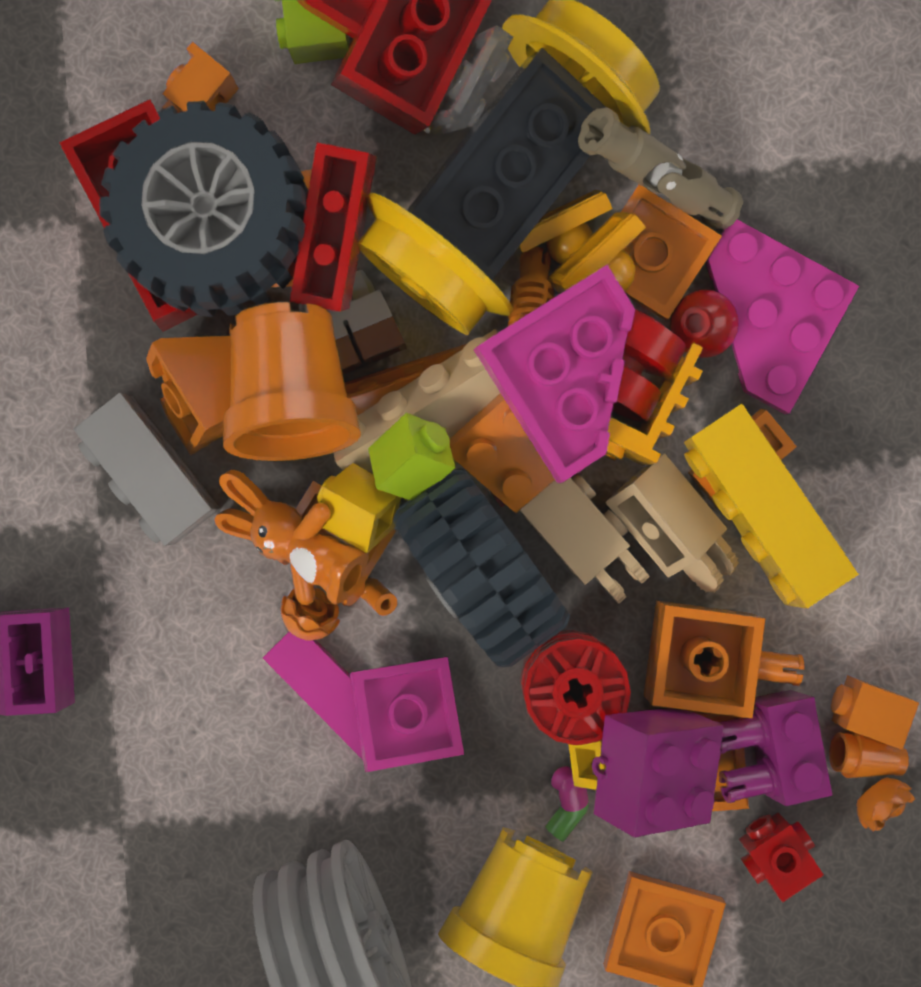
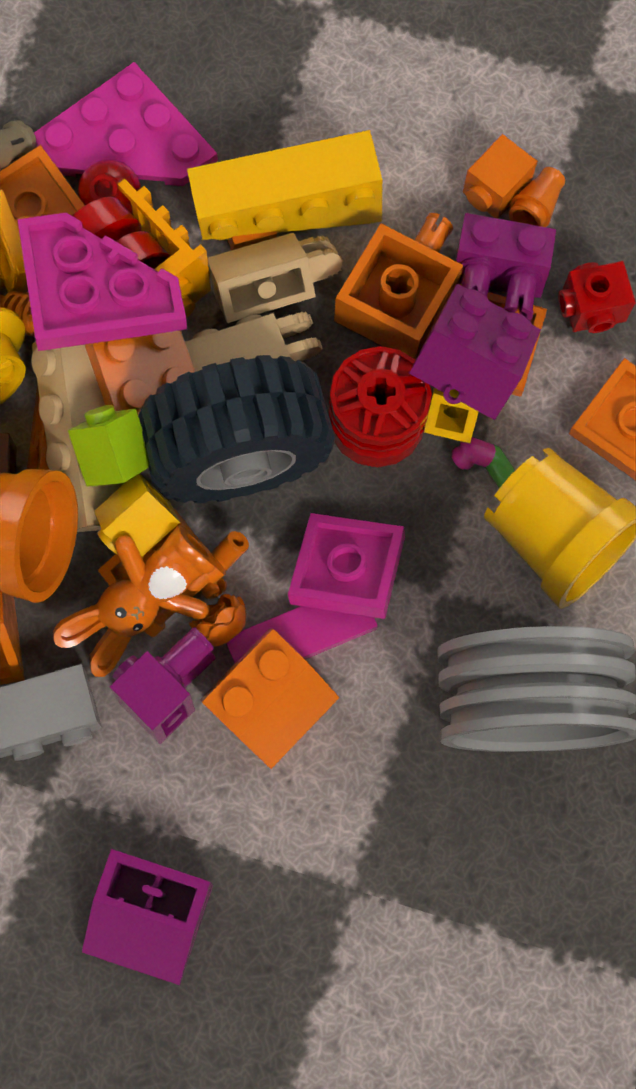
camera: 75 degrees left, 15 degrees down
(212, 587) = (155, 686): none -> magenta brick
(252, 686) = (270, 698): none -> orange slope
(882, 802) = (582, 201): orange plate -> none

